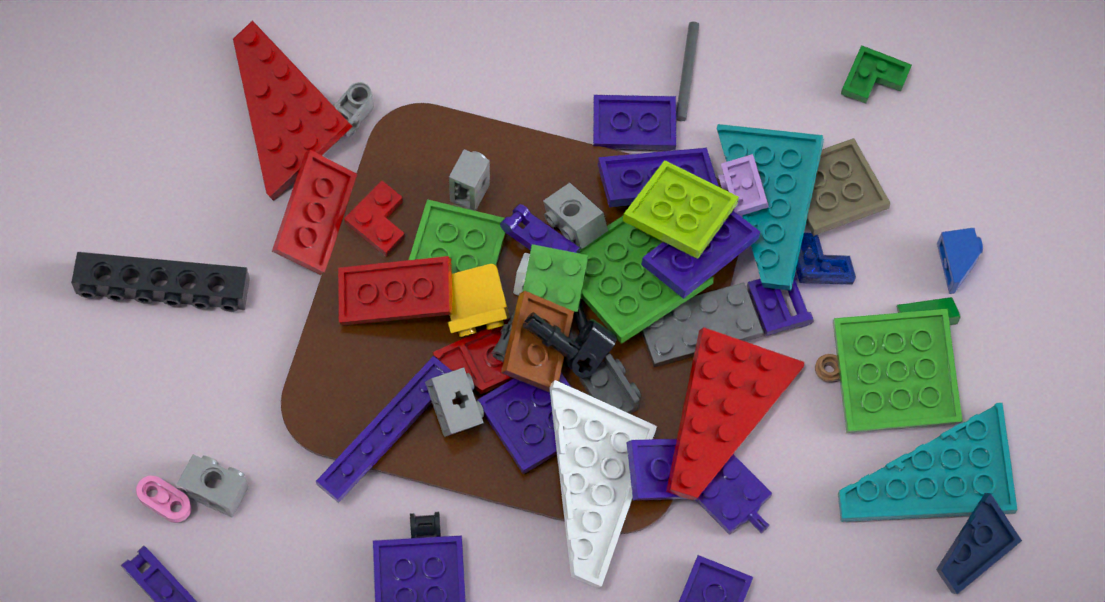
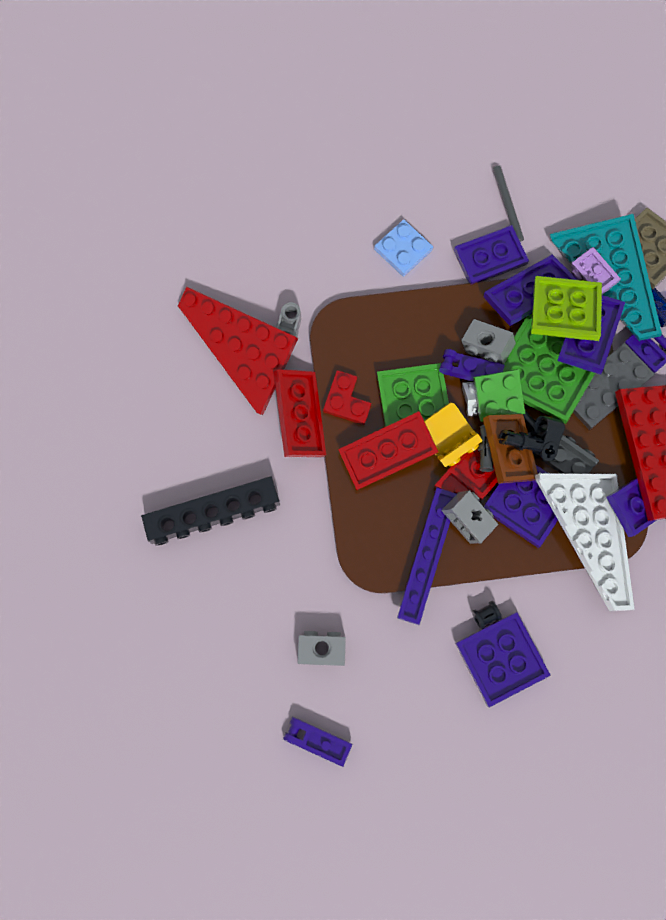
camera: 20 degrees left, 10 degrees up
(164, 500) = (290, 676): bright pink plate -> none
(469, 179) = (403, 345): light grey brick -> none
(533, 74) = (403, 248): none -> light blue plate
(874, 67) = (633, 152): green plate -> none

